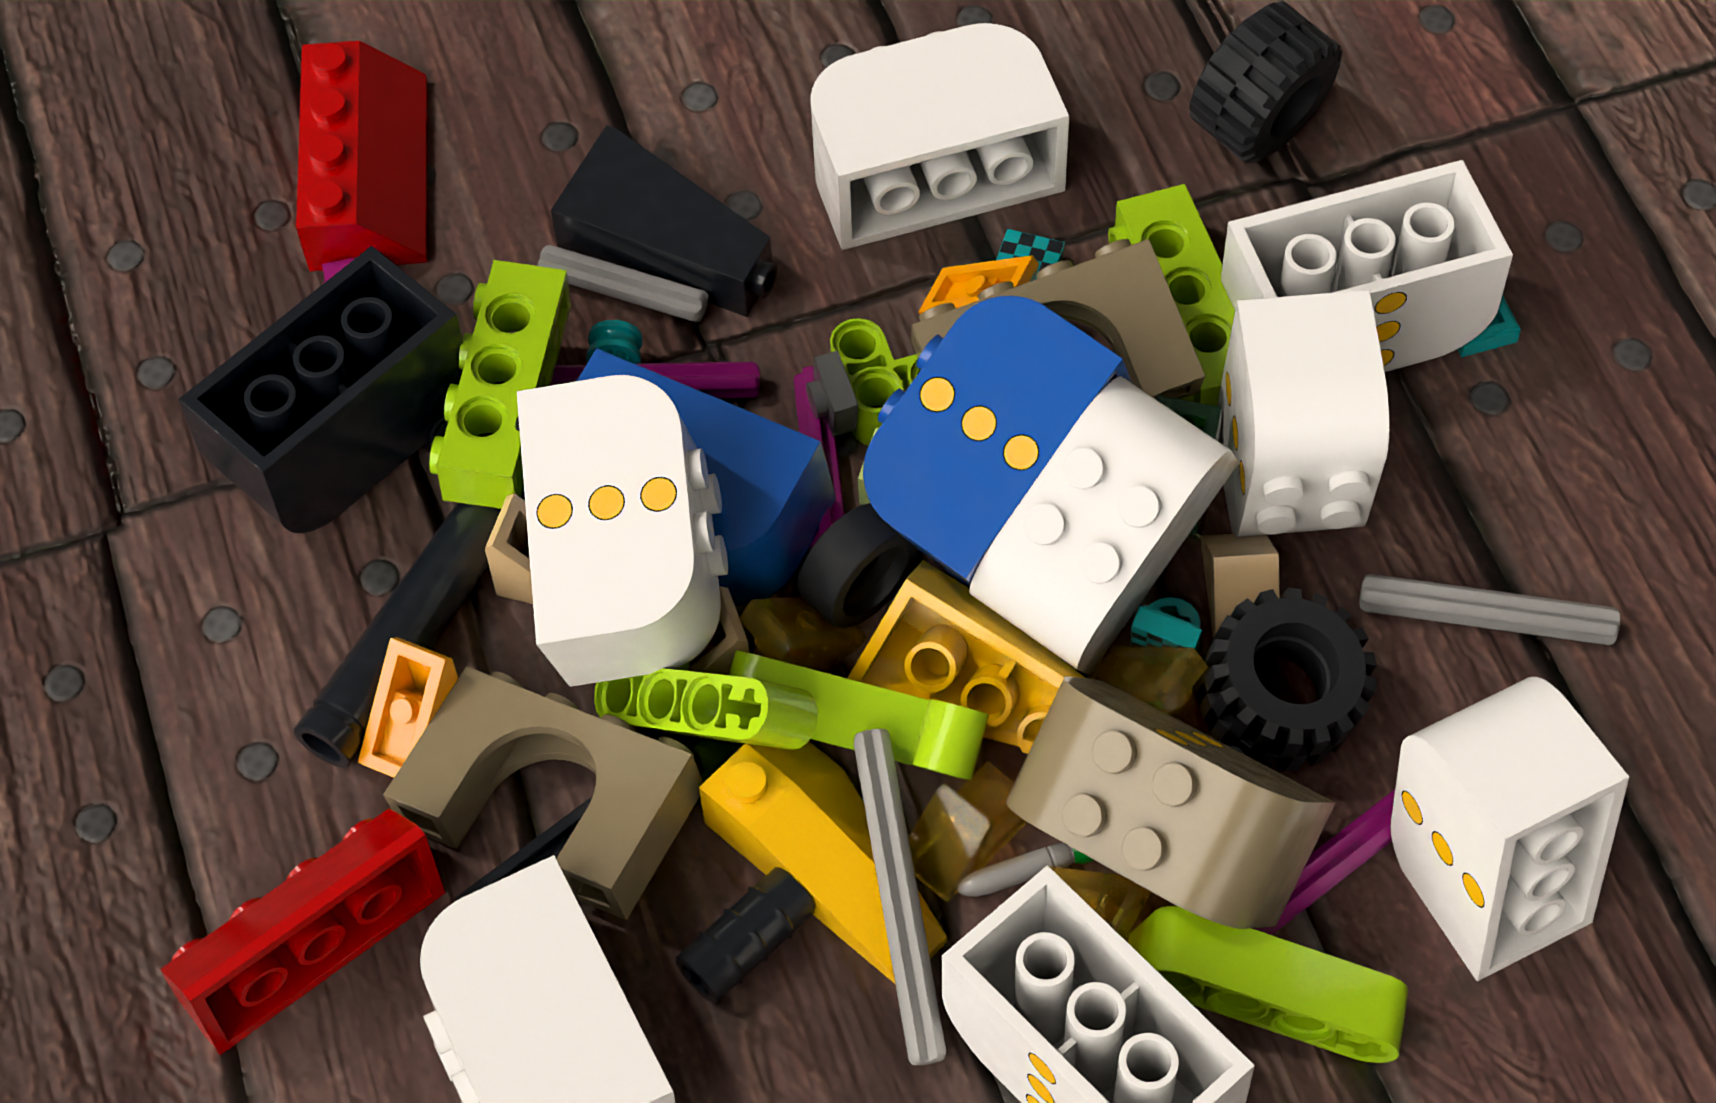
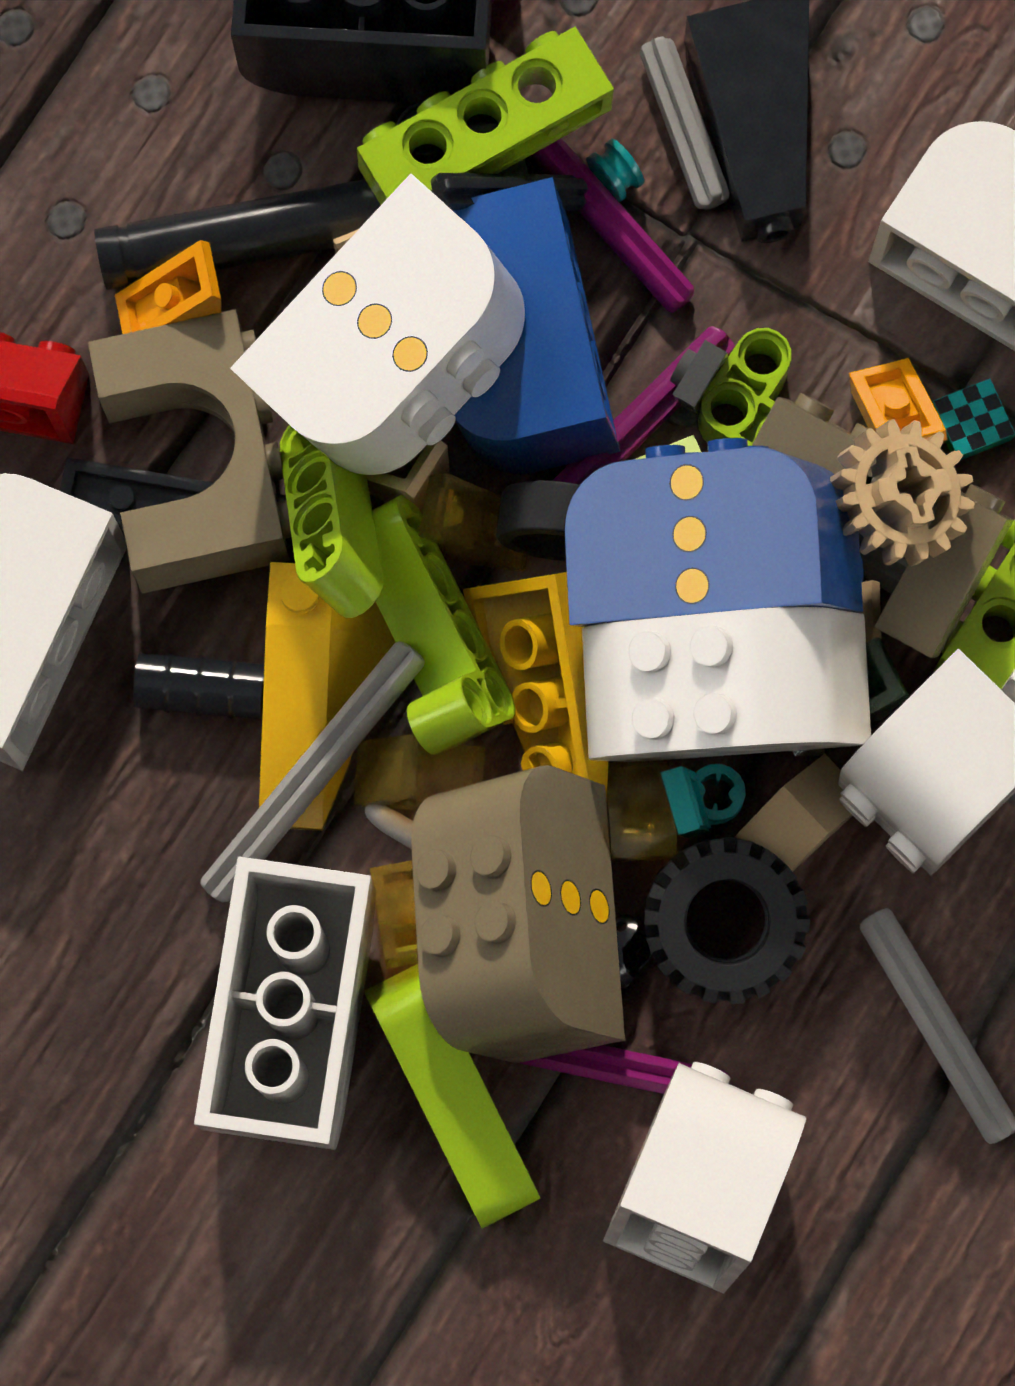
camera: 50 degrees right, 20 degrees up
(1073, 275) = (908, 466): none -> tan gear

